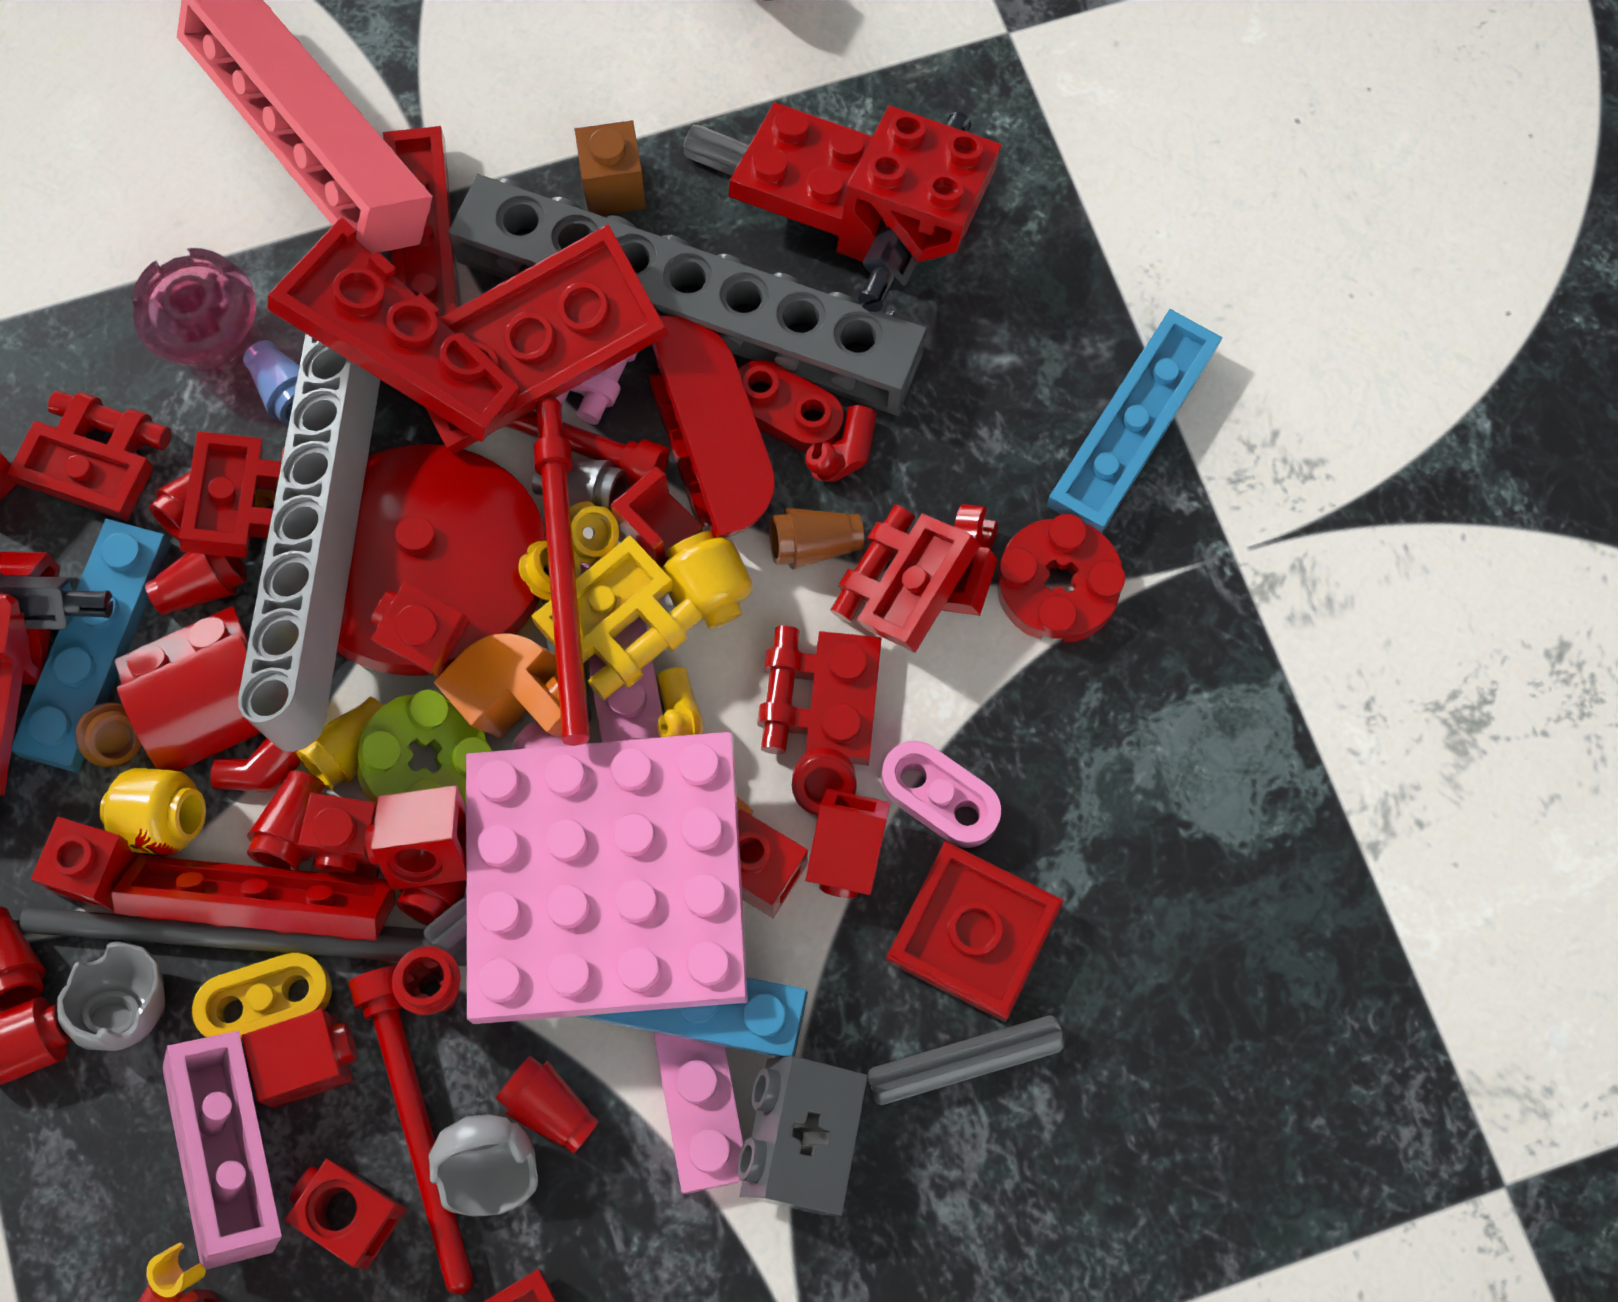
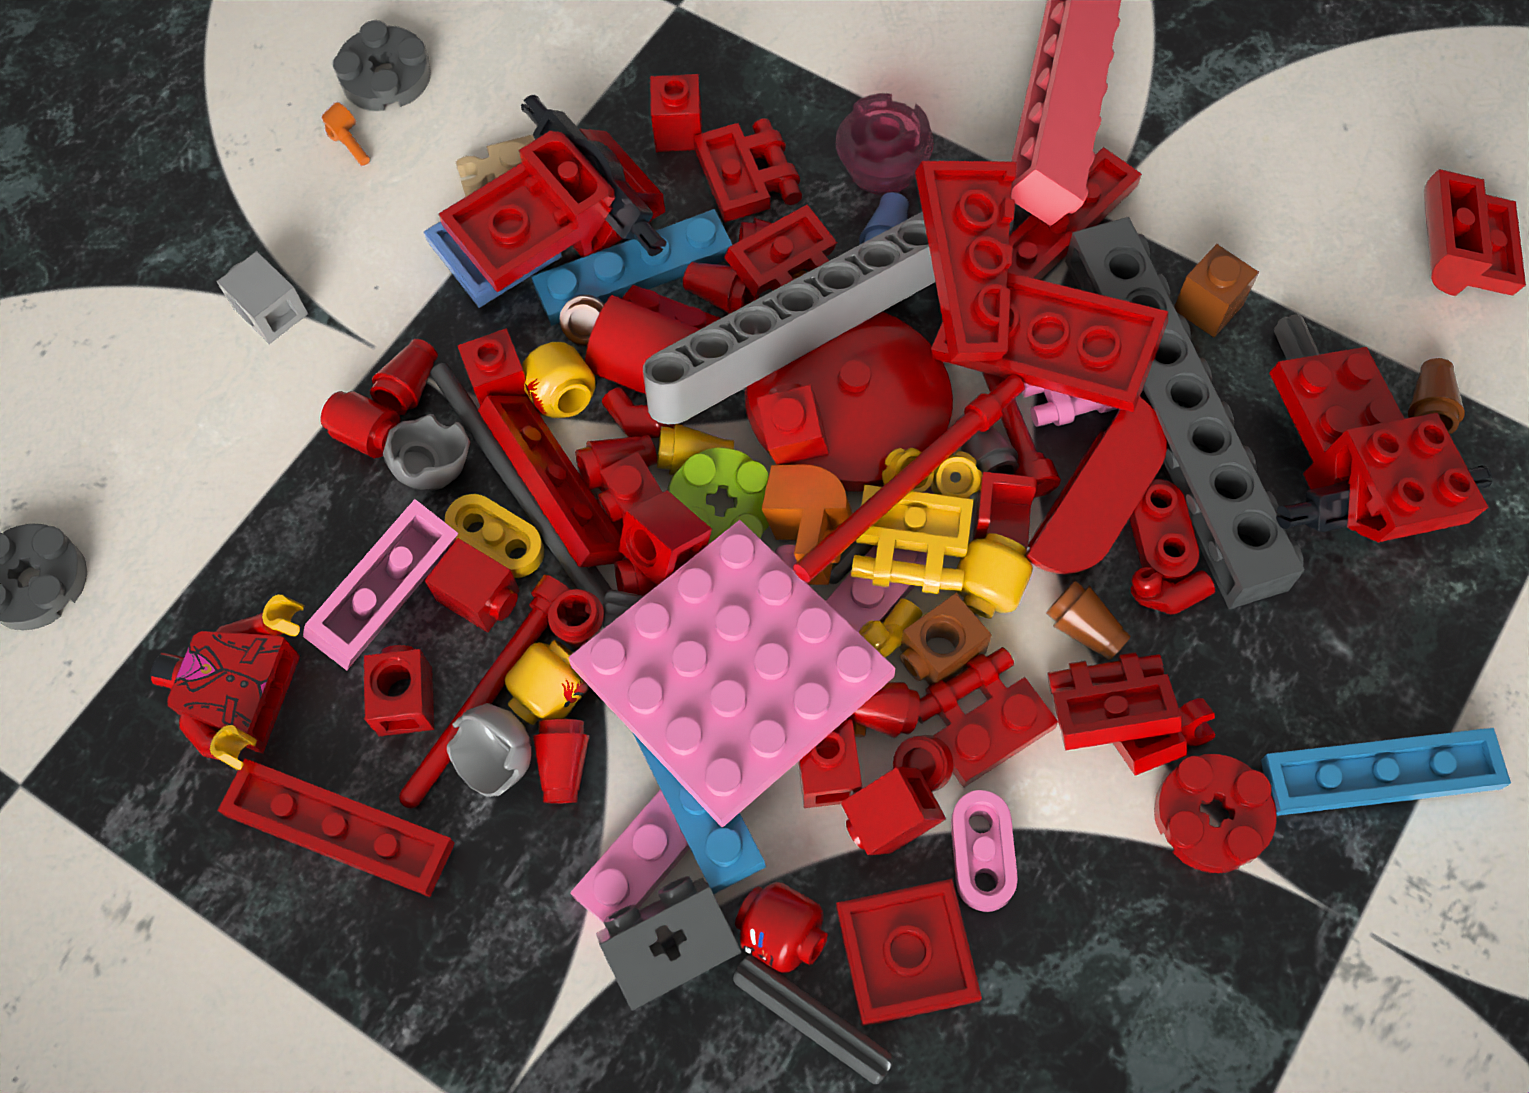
camera: 55 degrees right, 5 degrees down
(461, 1062) = (544, 683): none -> yellow head
(727, 647) = (949, 621): none -> dark orange brick
(758, 767) = (890, 710): none -> red cone
(862, 90) = (1438, 393): none -> dark orange cone
(868, 1023) = (781, 927): none -> red head

